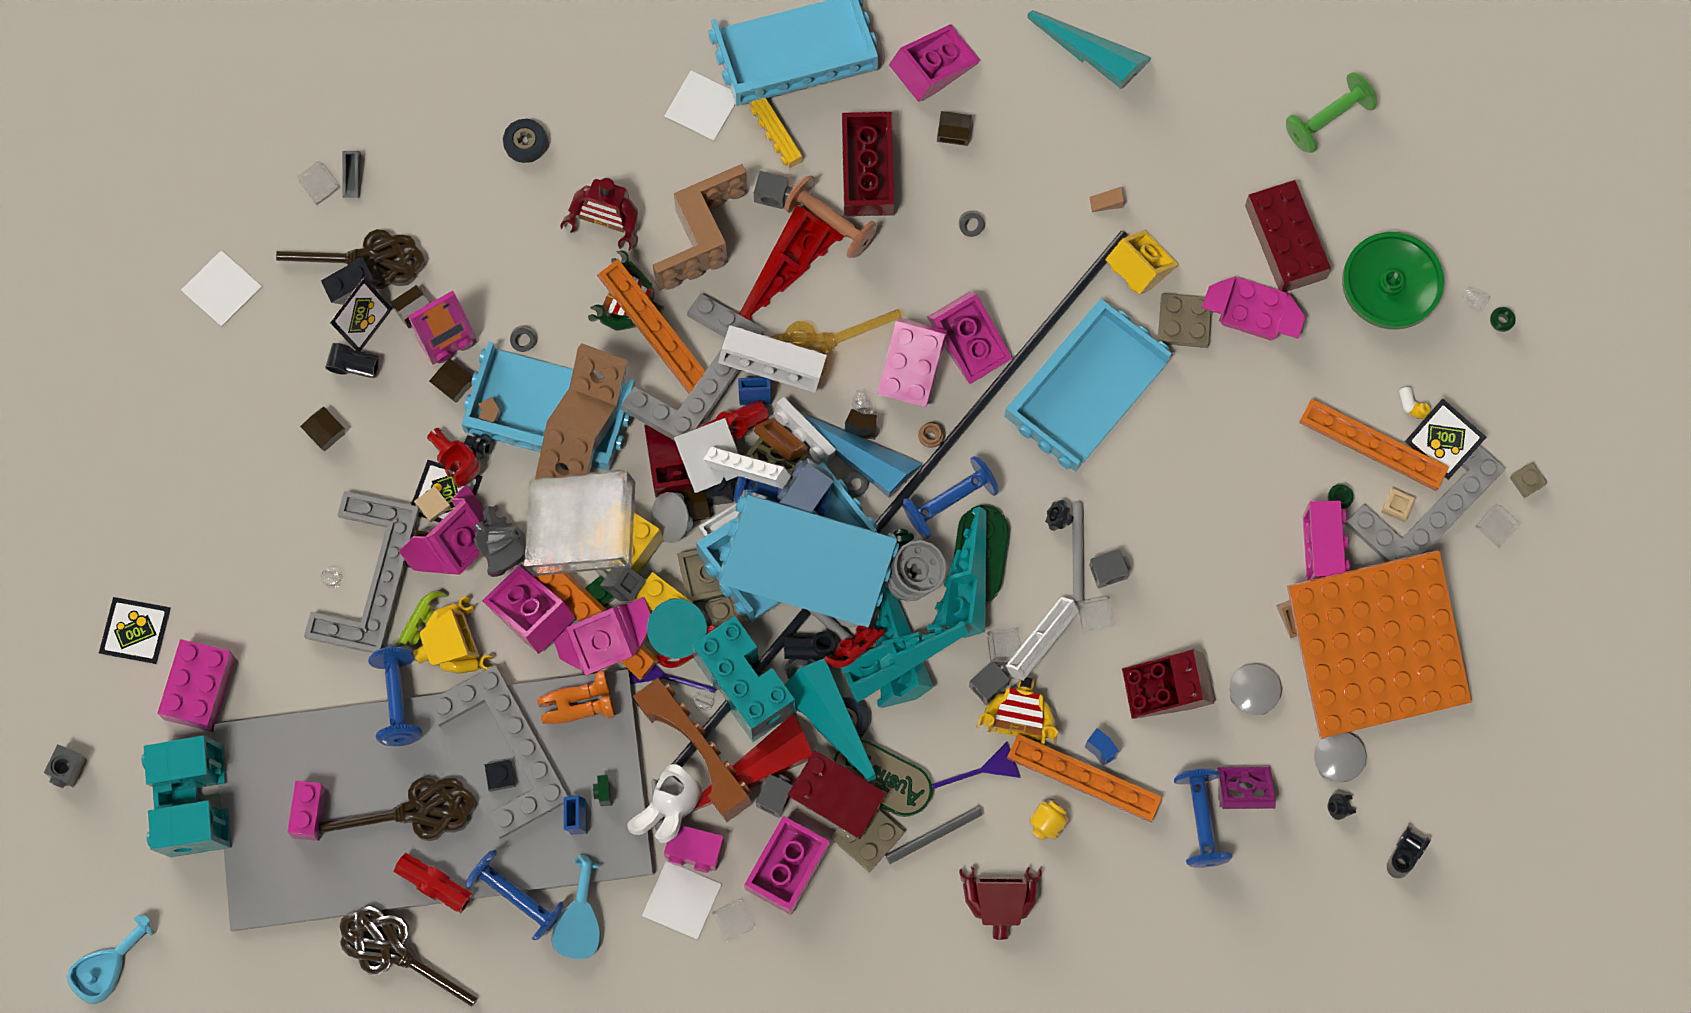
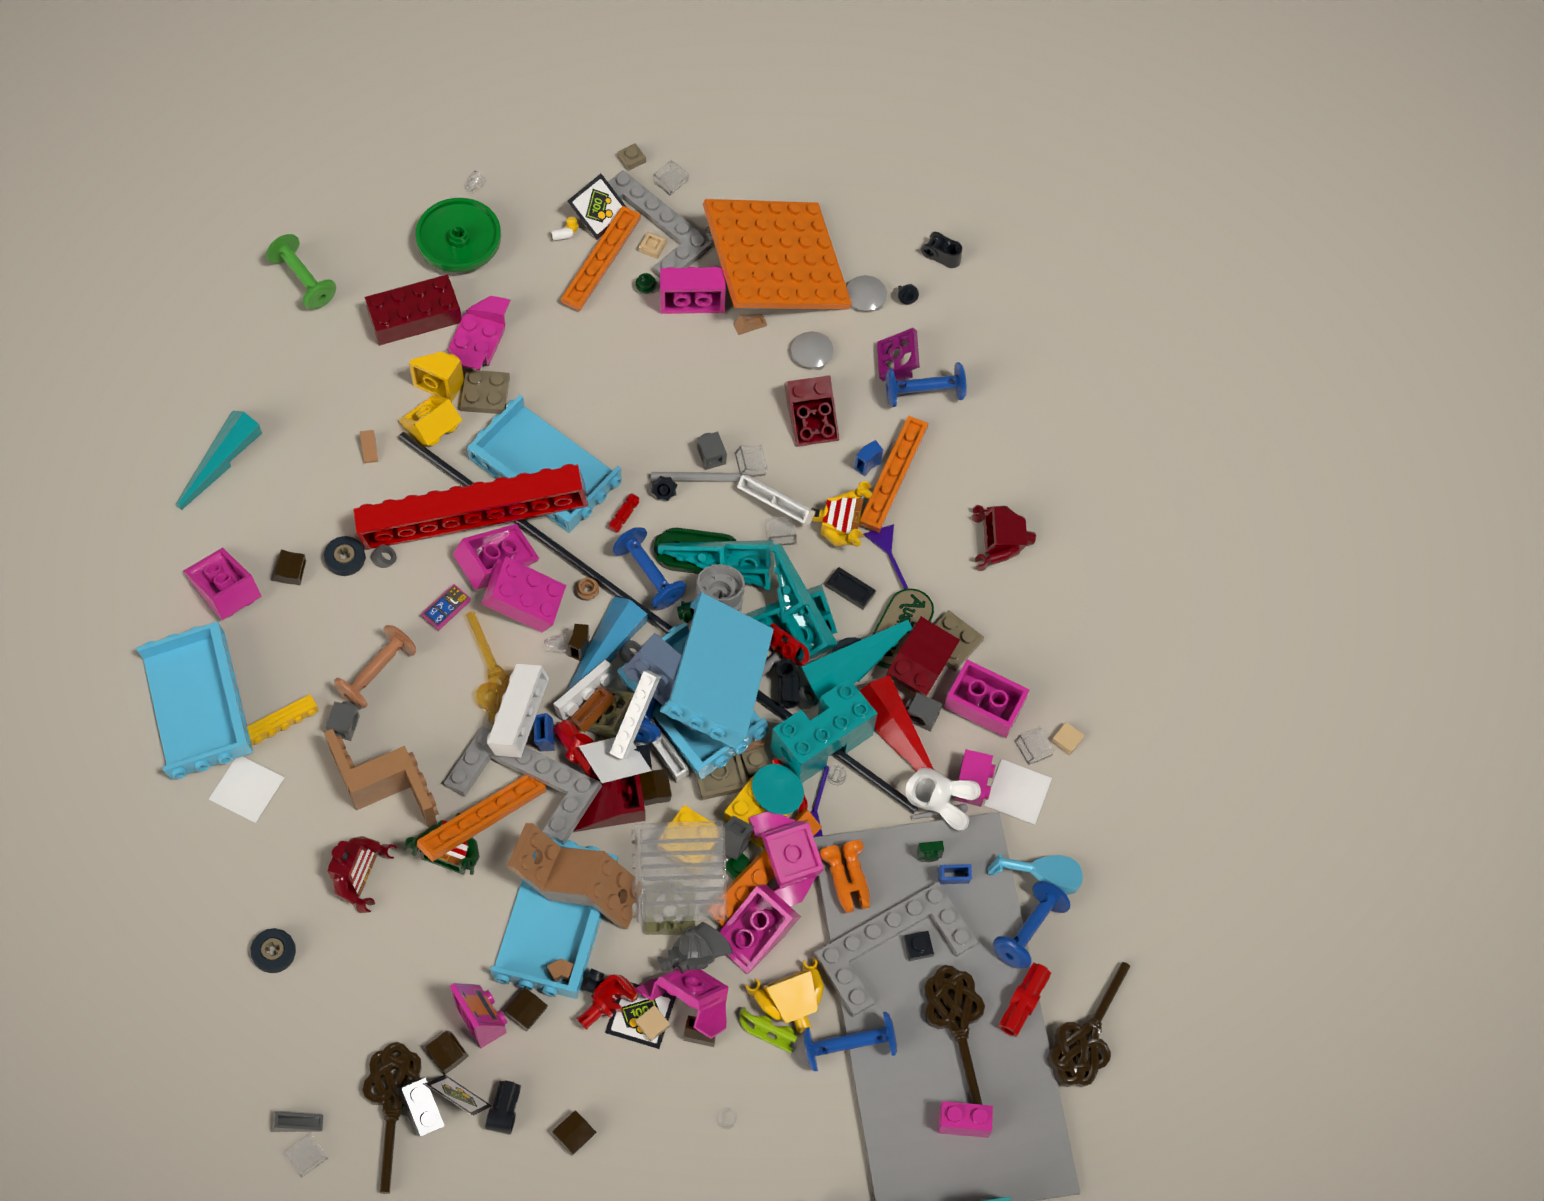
camera: 95 degrees left, 10 degrees down
(400, 524) = (675, 1051): light grey plate -> none
(526, 330) = (476, 949): dark grey piece -> none
(659, 705) = (928, 743): dark orange arch -> none
(671, 516) = (666, 800): light grey dish -> none
(743, 960) = (1068, 738): none -> tan tile
(797, 247) = (397, 697): red wedge -> none
(867, 164) = (323, 635): dark red brick -> none
(908, 288) = (446, 607): none -> tile
(933, 835) = (947, 587): dark grey bar -> none
(934, 724) = (850, 588): none -> black tile
(974, 193) = (345, 566): none -> black bush
(990, 682) = (814, 542): dark grey brick -> none
(1018, 303) = (471, 506): none -> red brick
(1027, 473) = (623, 513): none -> red axle
(1048, 820) = (932, 499): yellow head -> none
(1195, 267) = (438, 374): none -> yellow slope
(1507, 314) = (490, 161): dark green plate -> none

